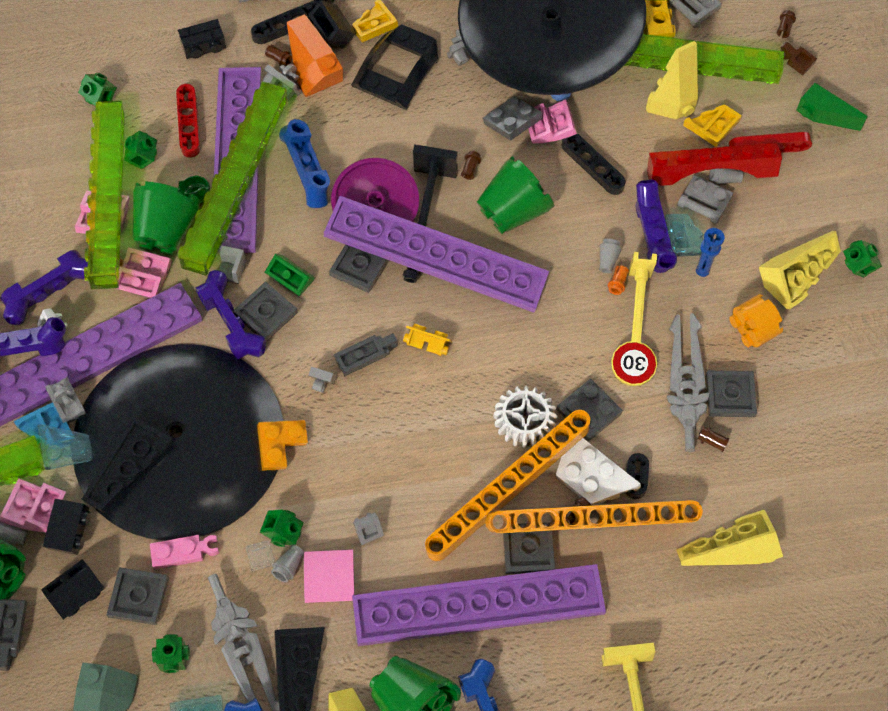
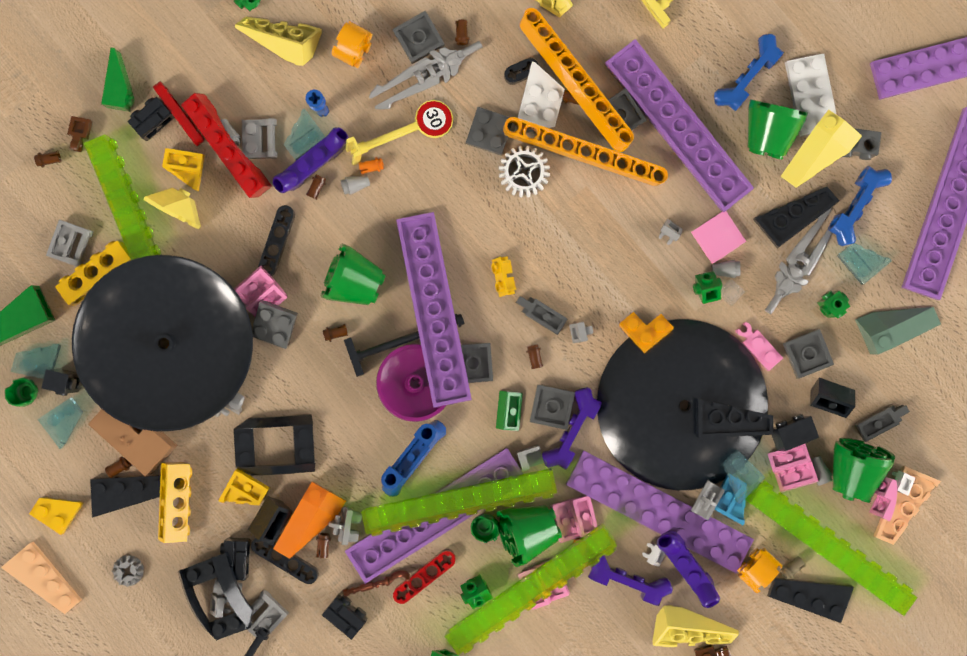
camera: 125 degrees left, 25 degrees up
(207, 88) = (370, 585): none -> copper piece
(327, 324) = (534, 355): none -> reddish brown pin
(626, 221) = (316, 186): none -> reddish brown pin
(777, 115) = (150, 118): none -> black brick

